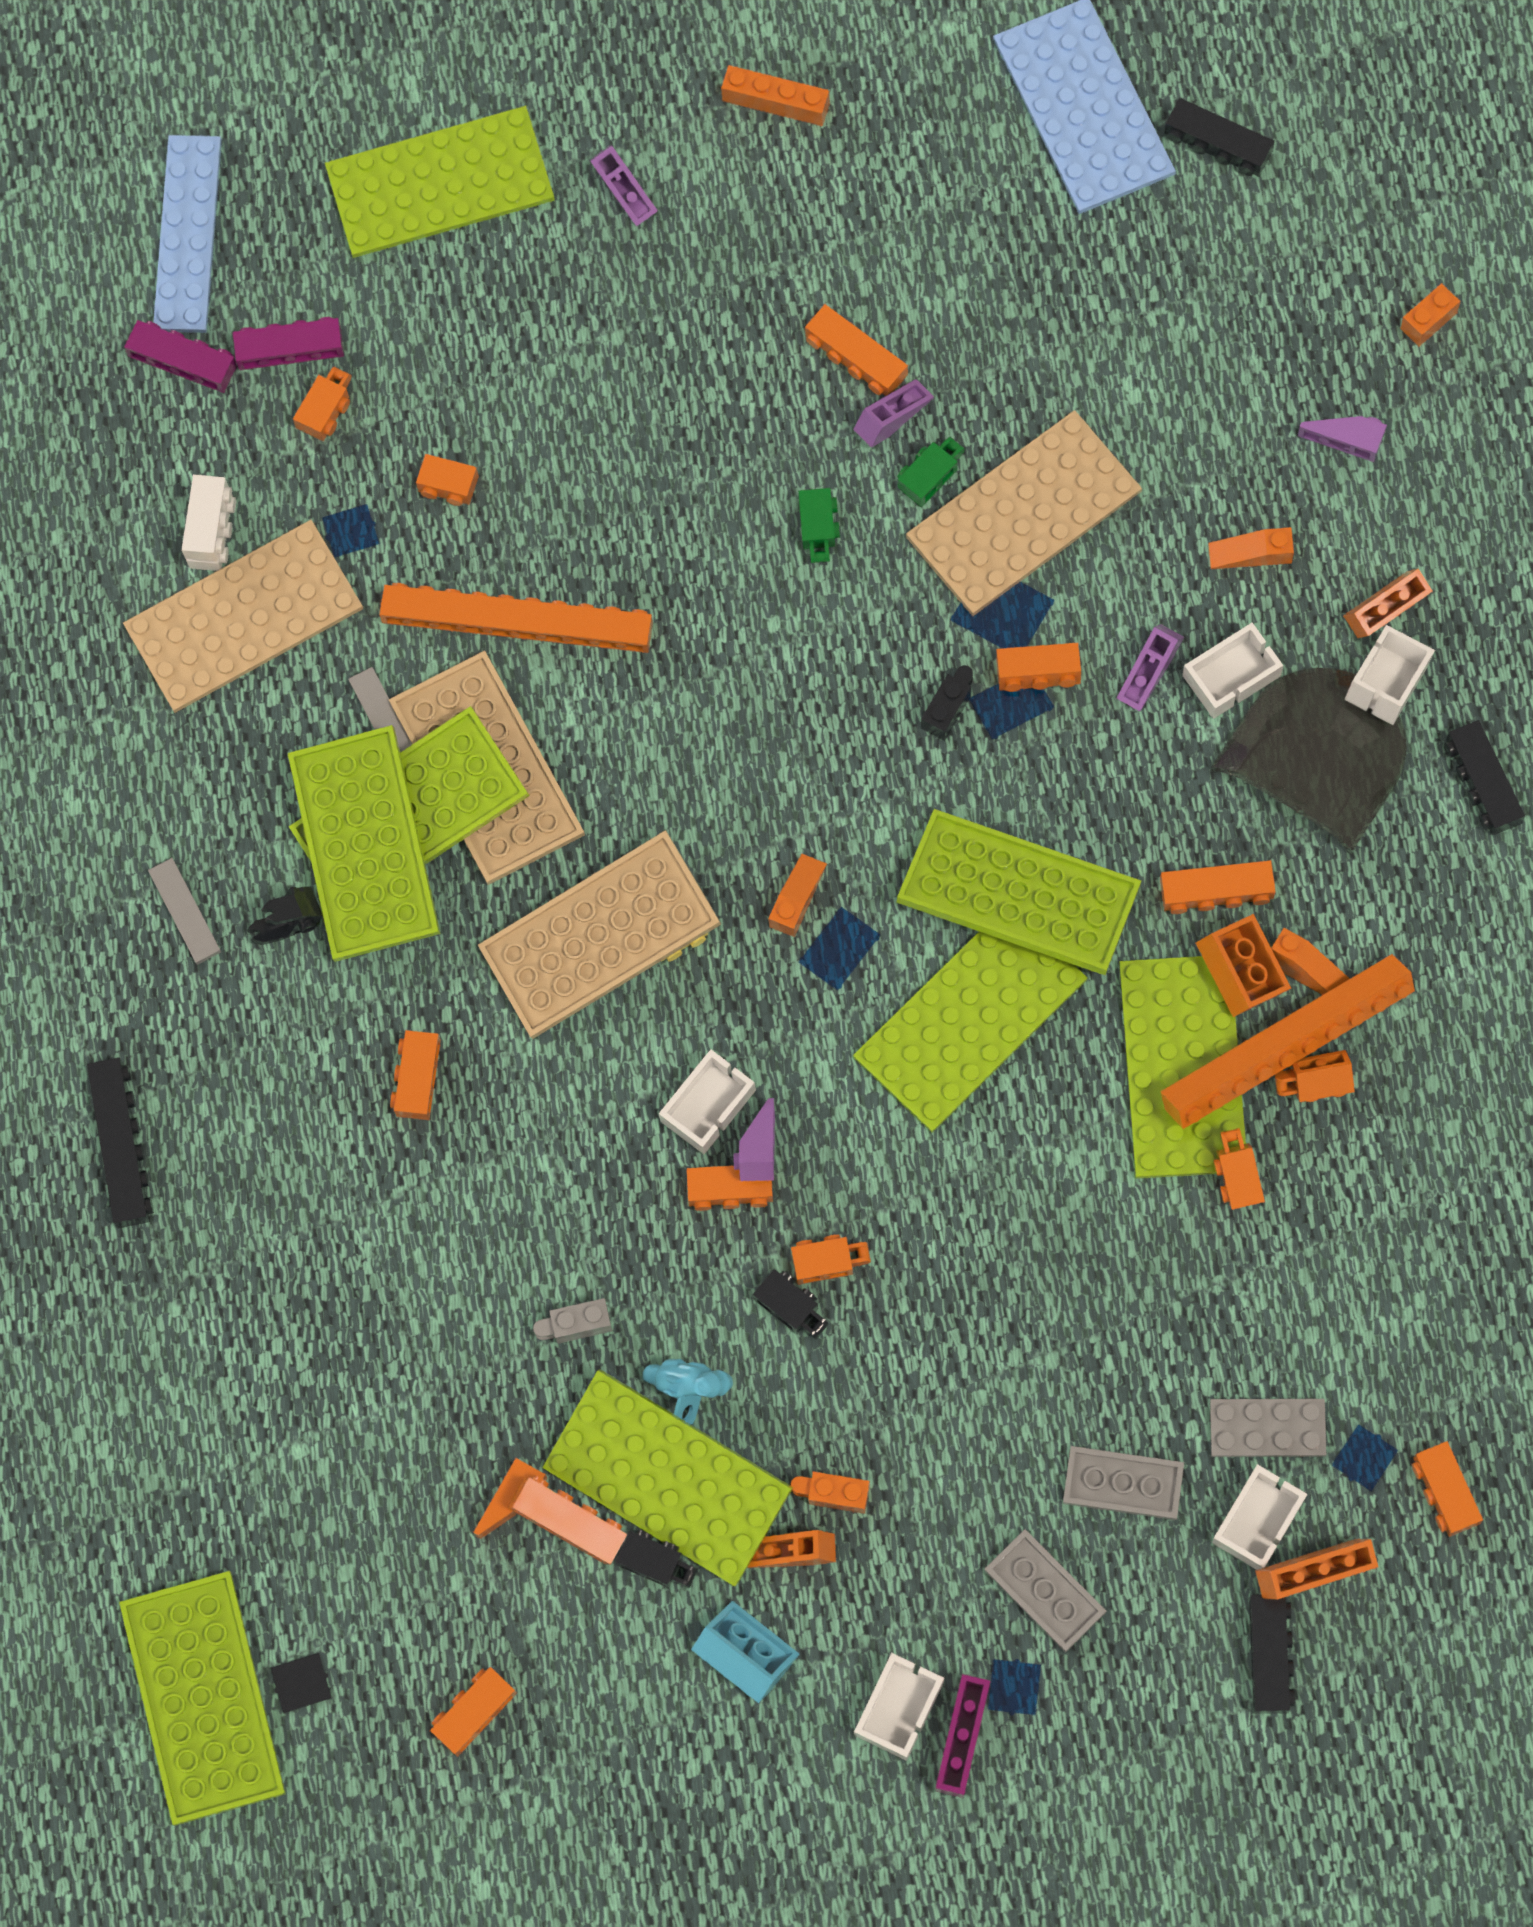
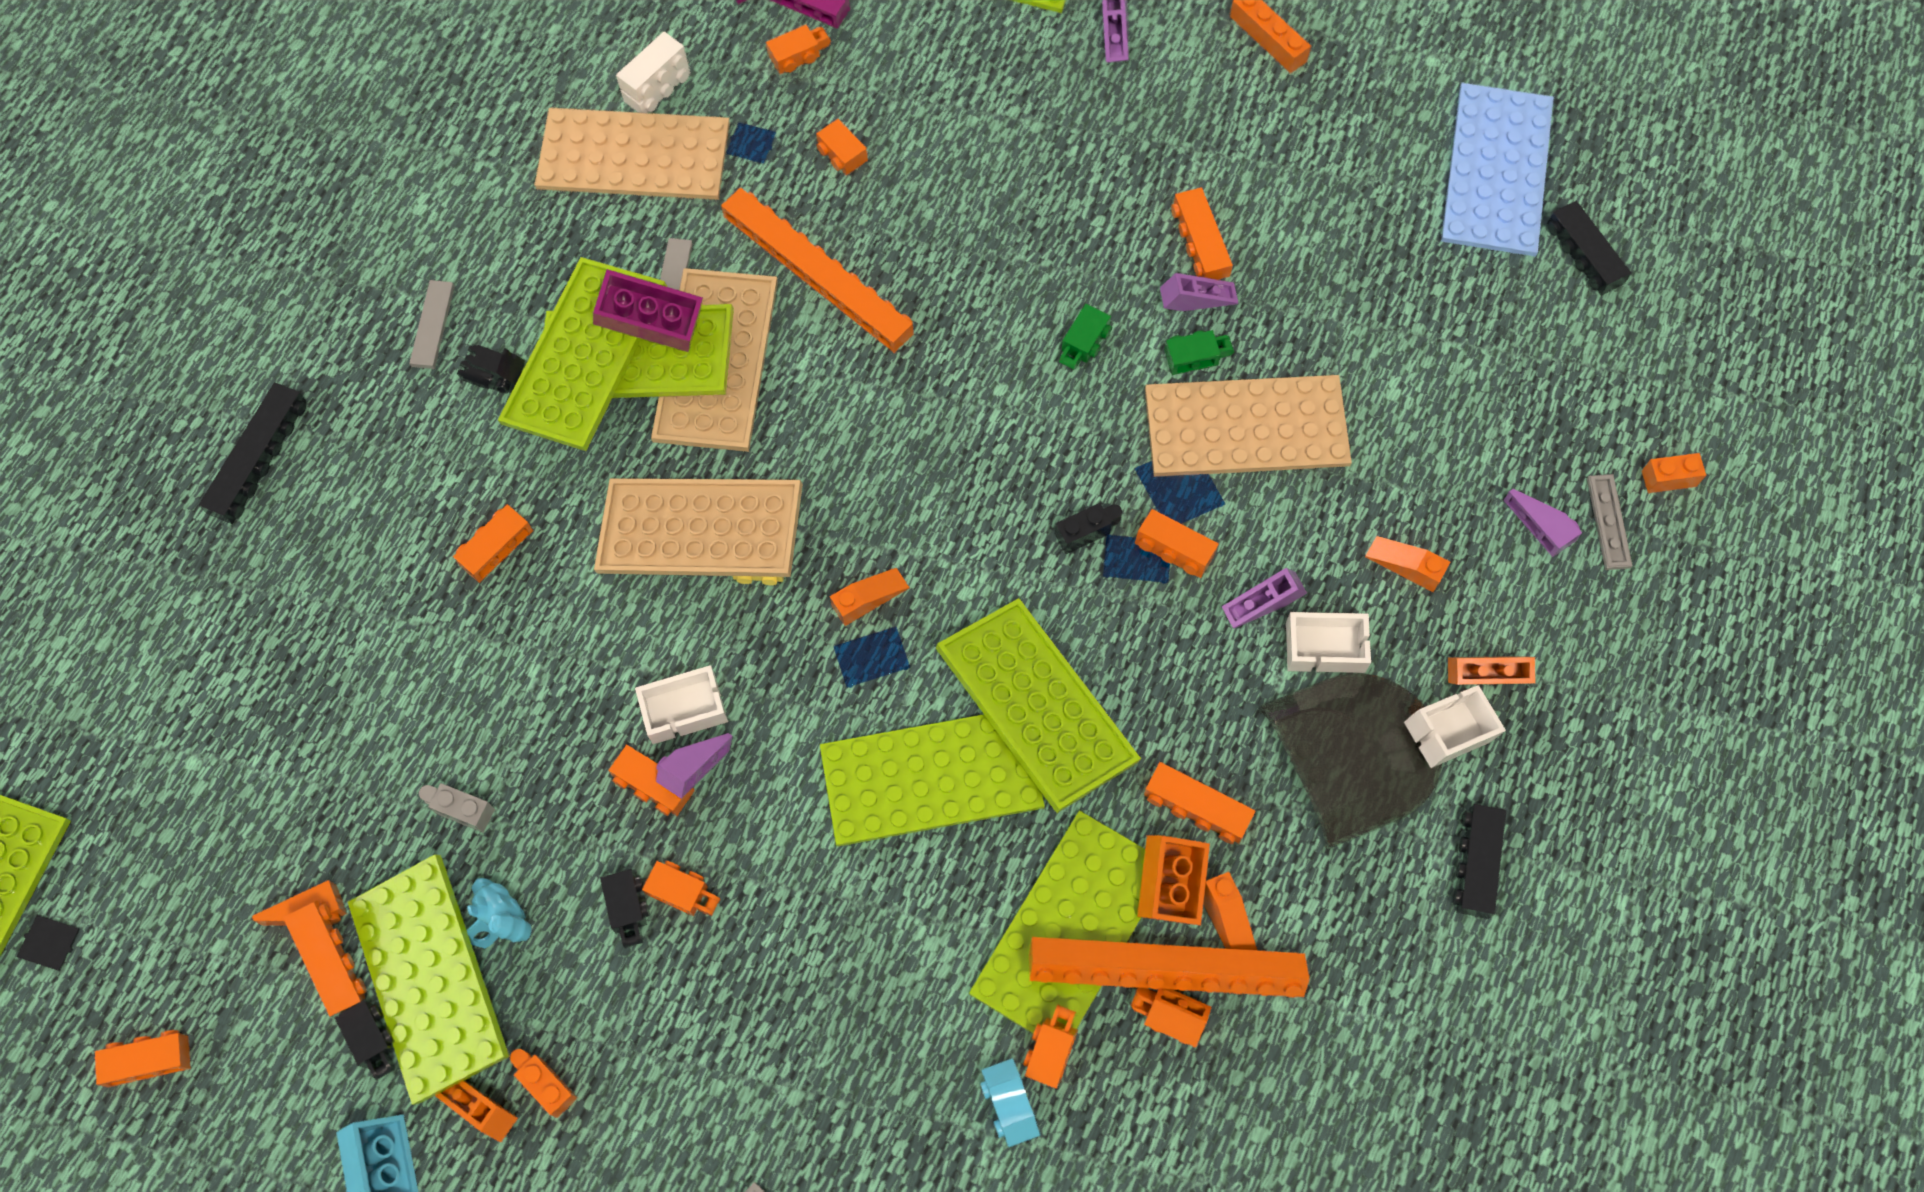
camera: 30 degrees right, 5 degrees down
(406, 764) = (647, 310): none -> magenta brick
(1234, 1240) = (1010, 1103): none -> medium azure brick
(1402, 396) = (1609, 522): none -> light grey tile

